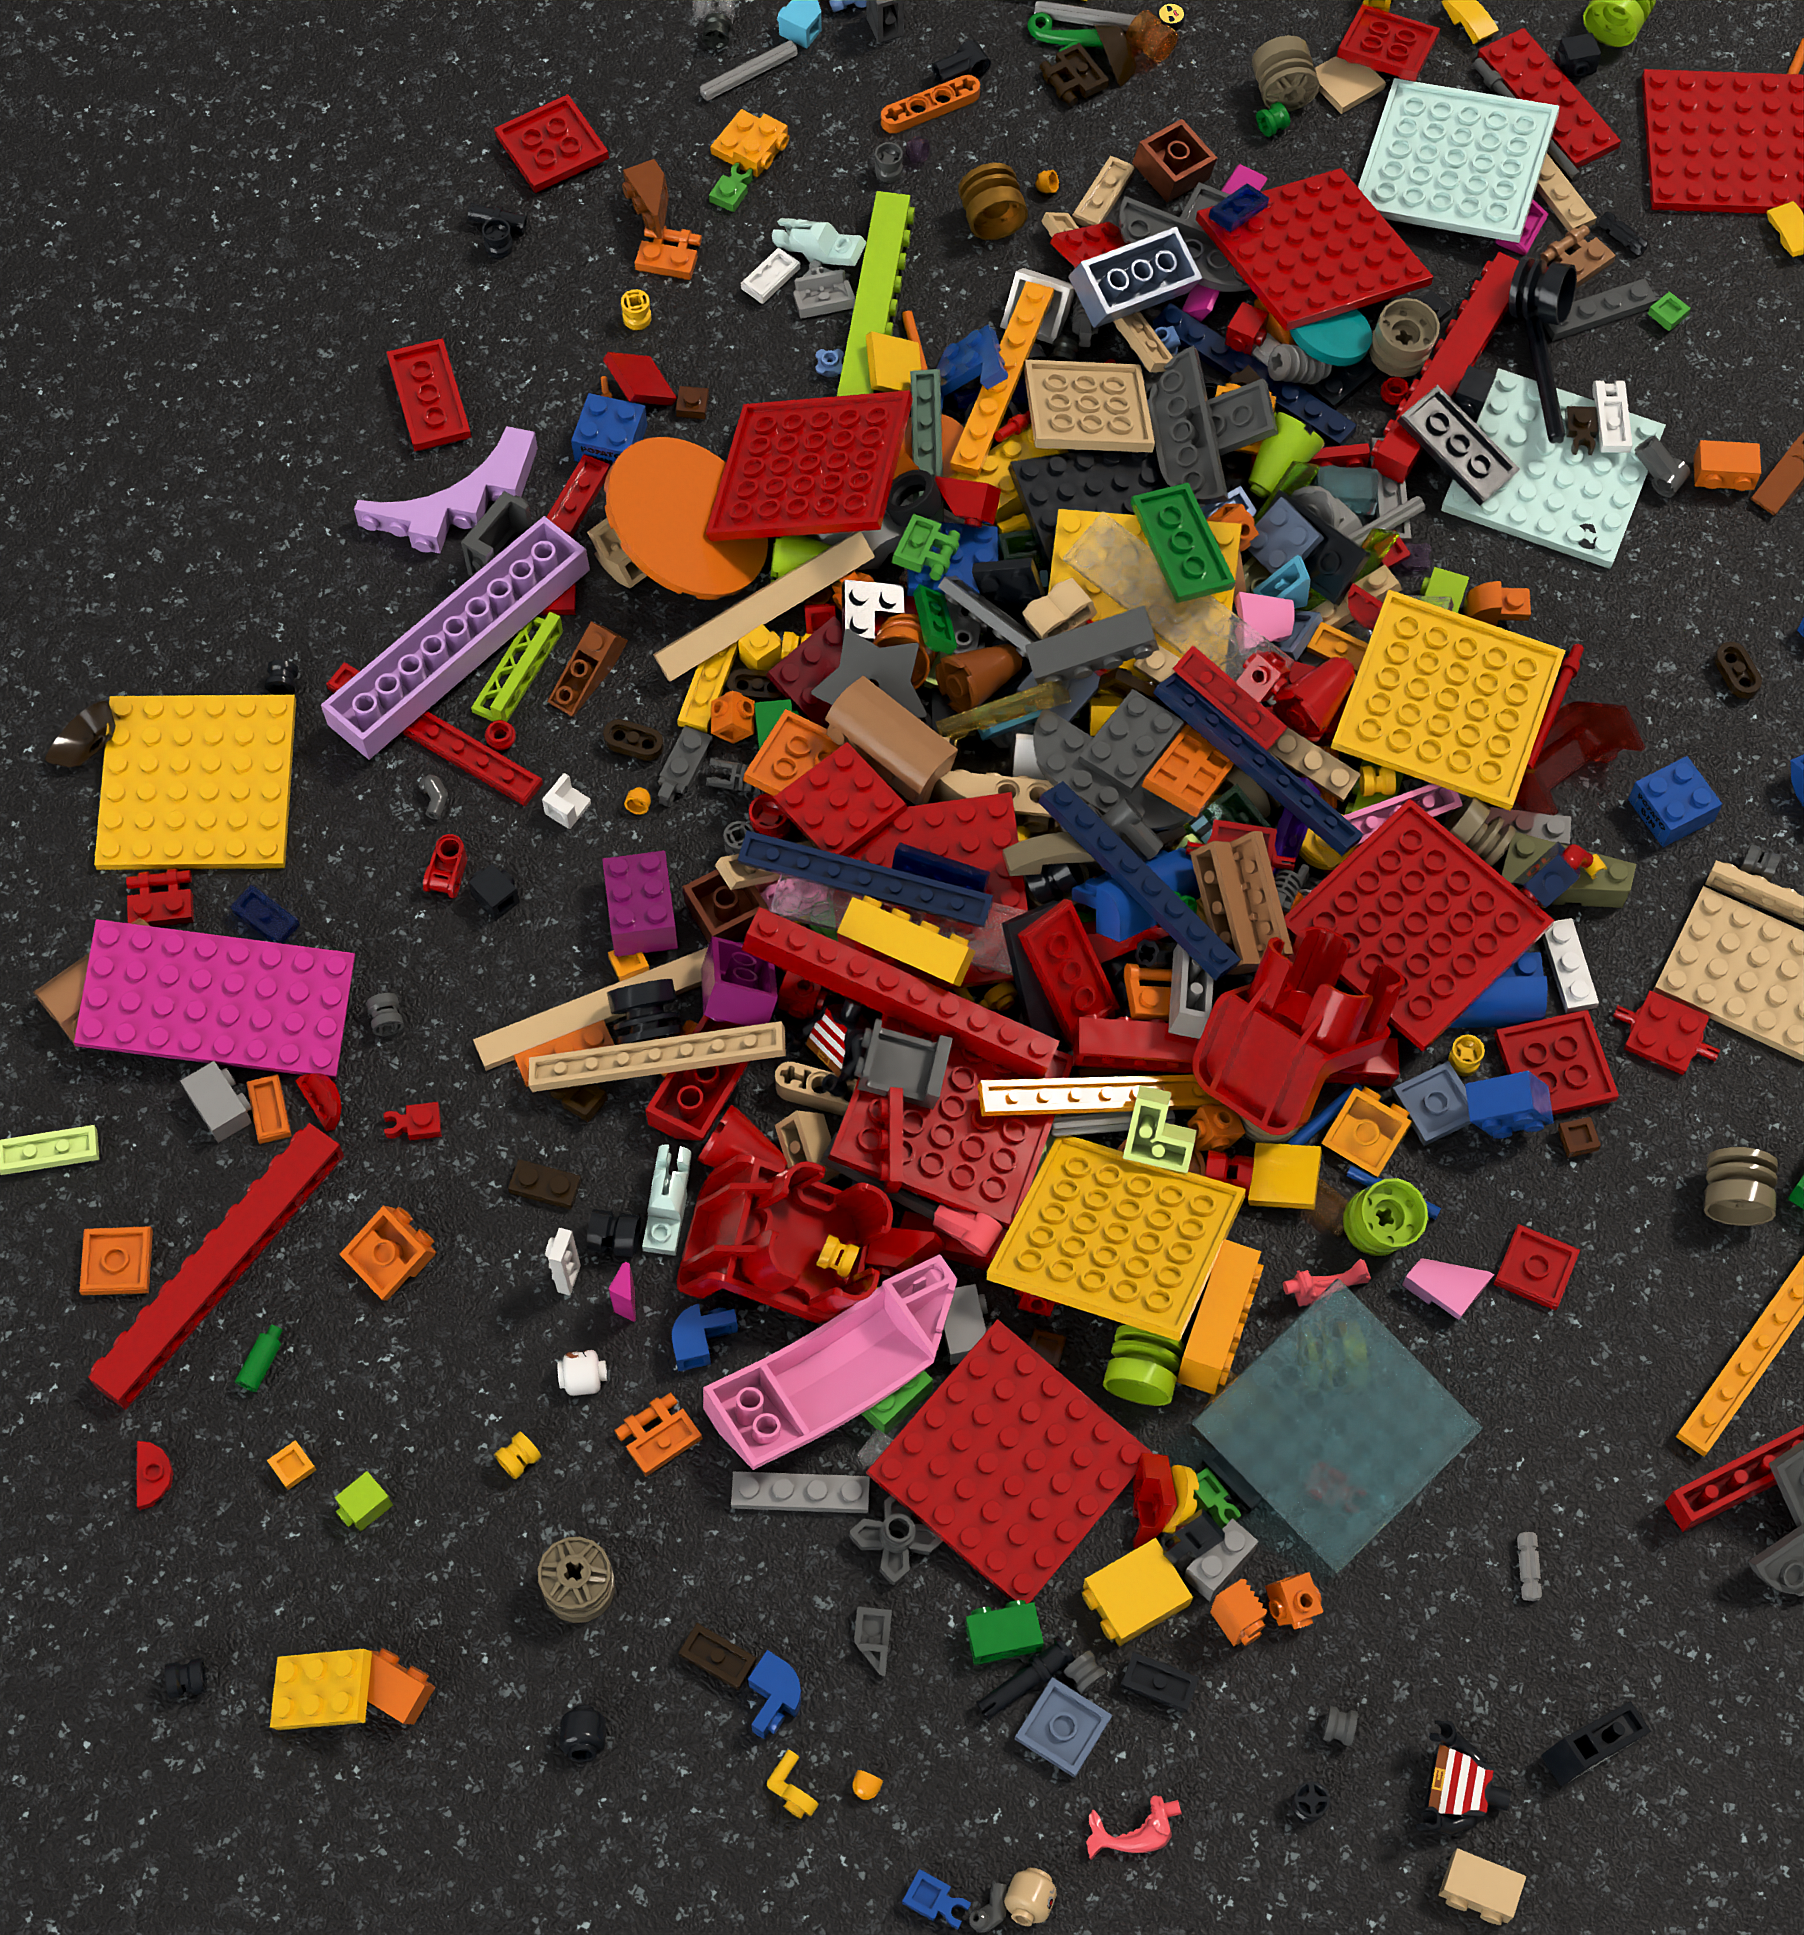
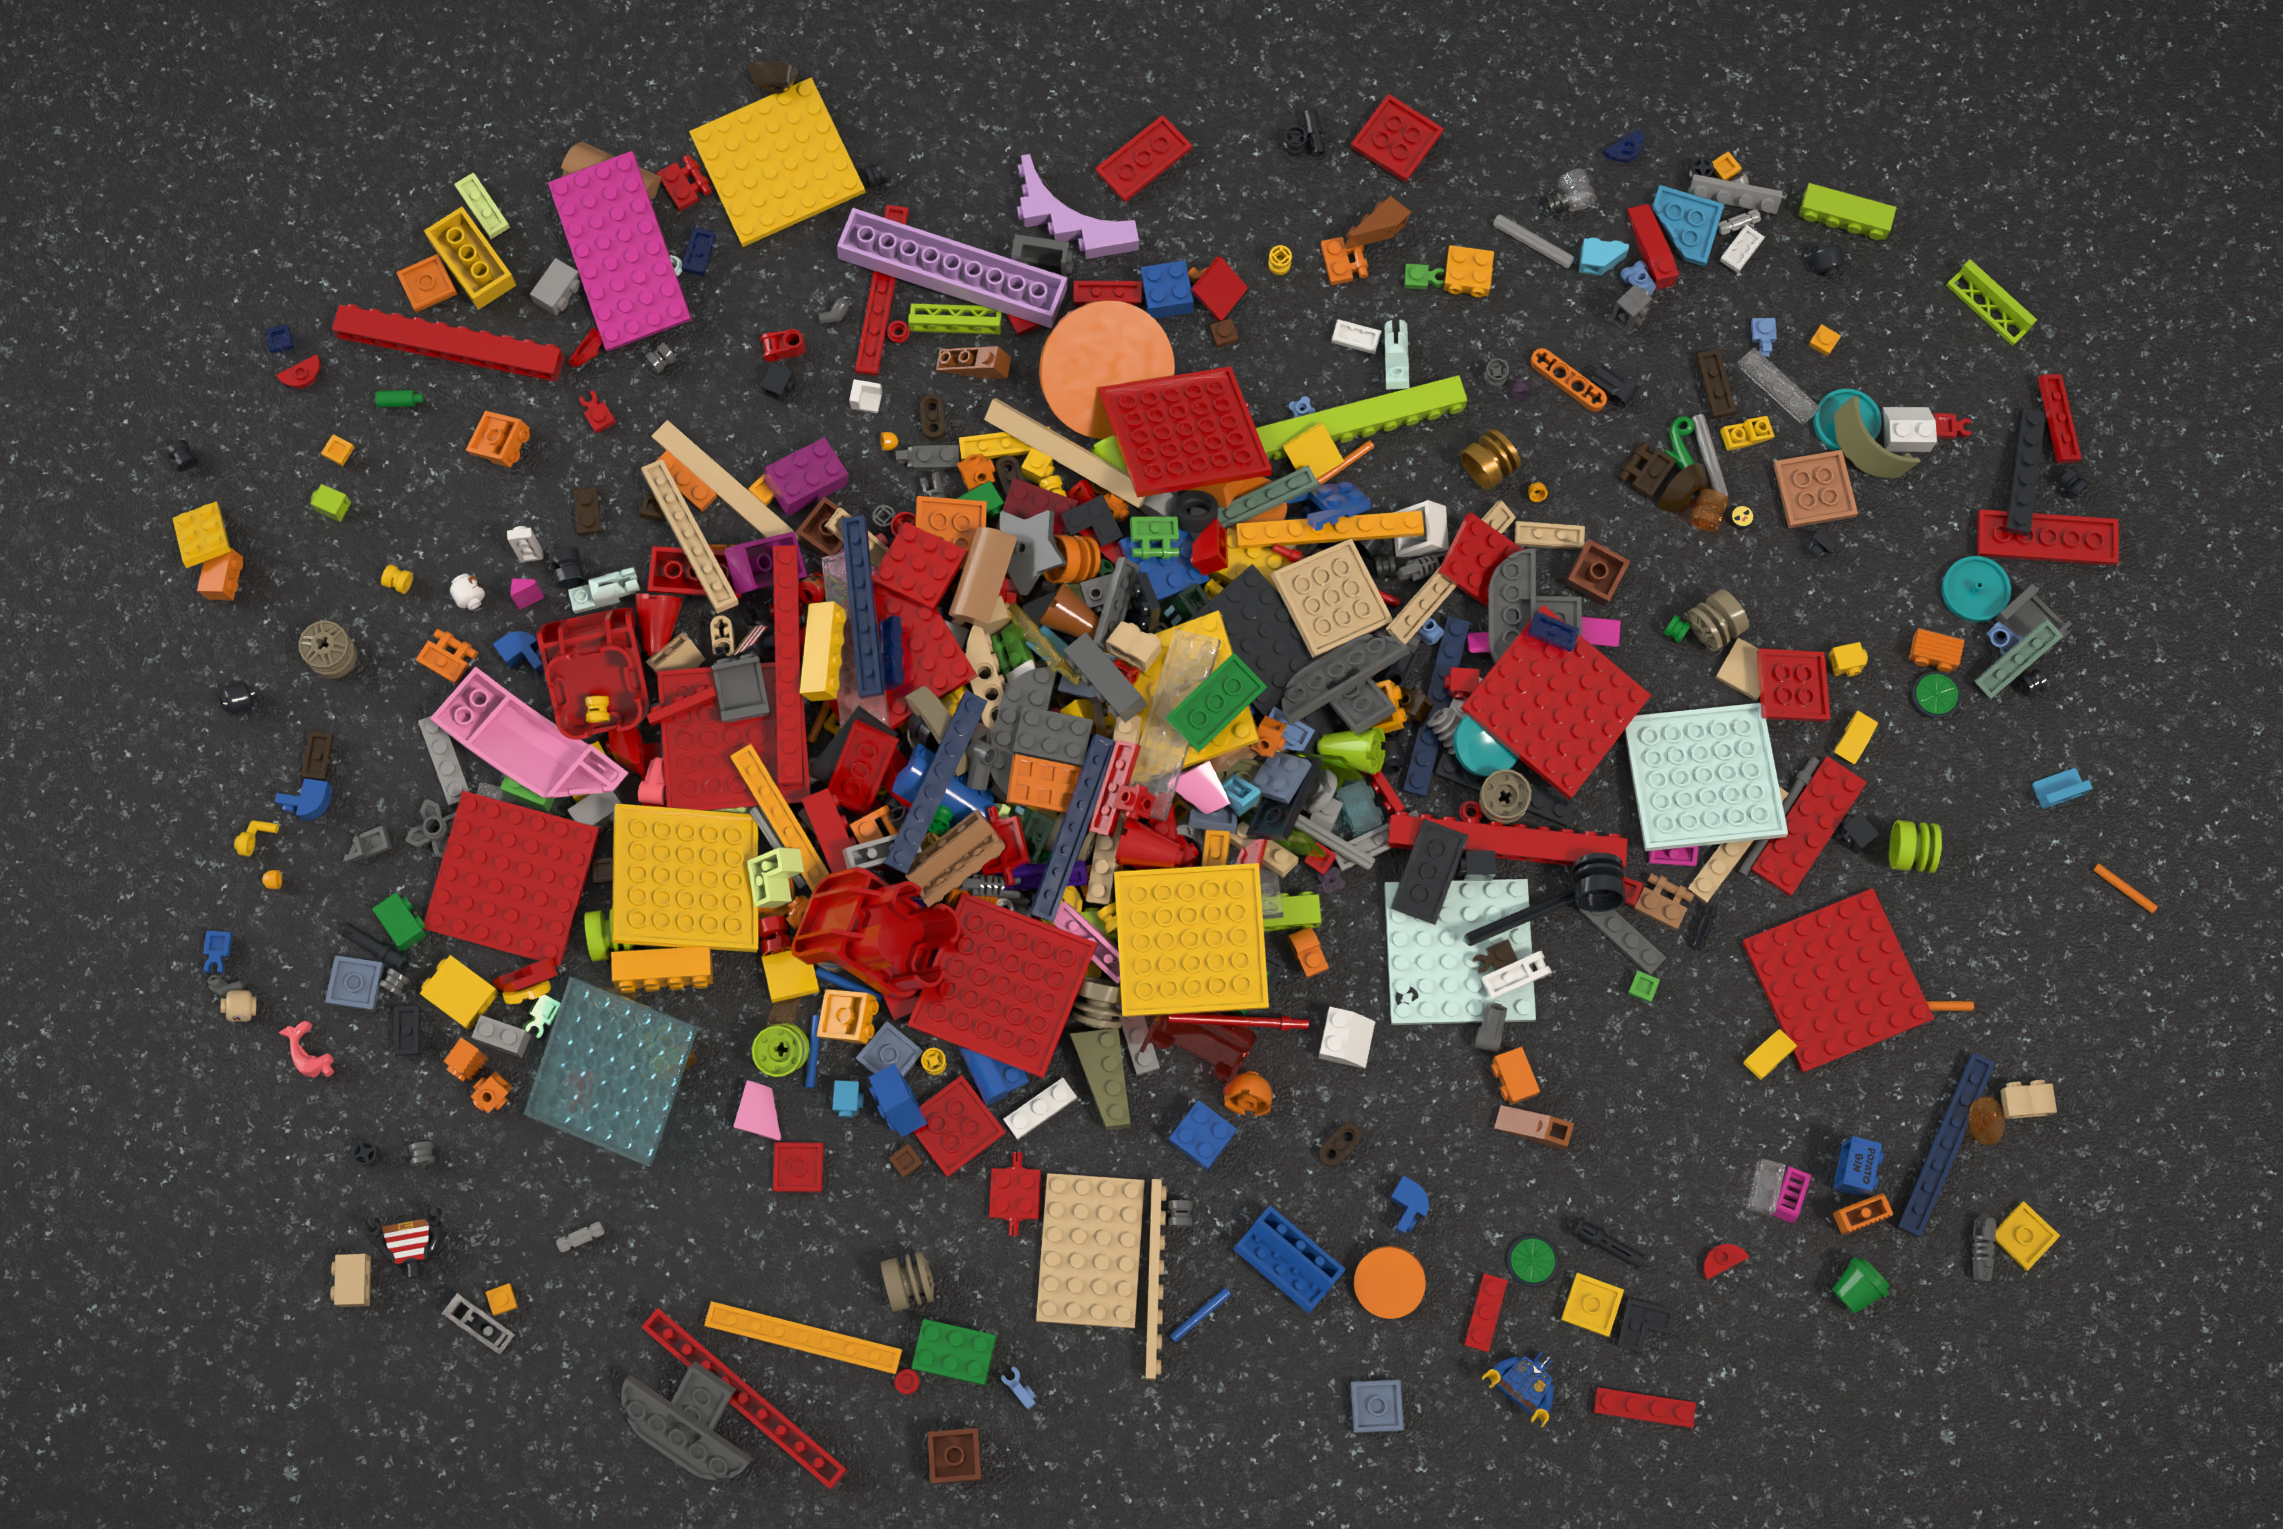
camera: 65 degrees right, 10 degrees up
(86, 1482) = (279, 338): none -> clear blue plate
(116, 1187) = (470, 258): none -> yellow brick
(268, 1109) = (568, 321): orange tile -> none
(645, 1011) = (721, 516): black wheel -> none
(822, 291) = (1361, 377): light grey slope -> none
(934, 620) = (1093, 567): green plate -> none
(984, 756) = (1016, 647): none -> bright green plate
(1135, 277) = (1451, 583): sand blue brick -> none
(1195, 1534) = (500, 1010): black plate -> none
(1309, 1288) = (715, 1020): coral animal -> none
(1473, 1172) = (847, 1098): none -> dark azure brick
(1556, 873) = (1083, 1065): dark blue torso -> none
(1577, 1700) = (501, 1299): none -> light orange plate
(1610, 617) = (1346, 1038): none -> white slope
(1654, 729) = (1249, 1093): none -> orange cylinder

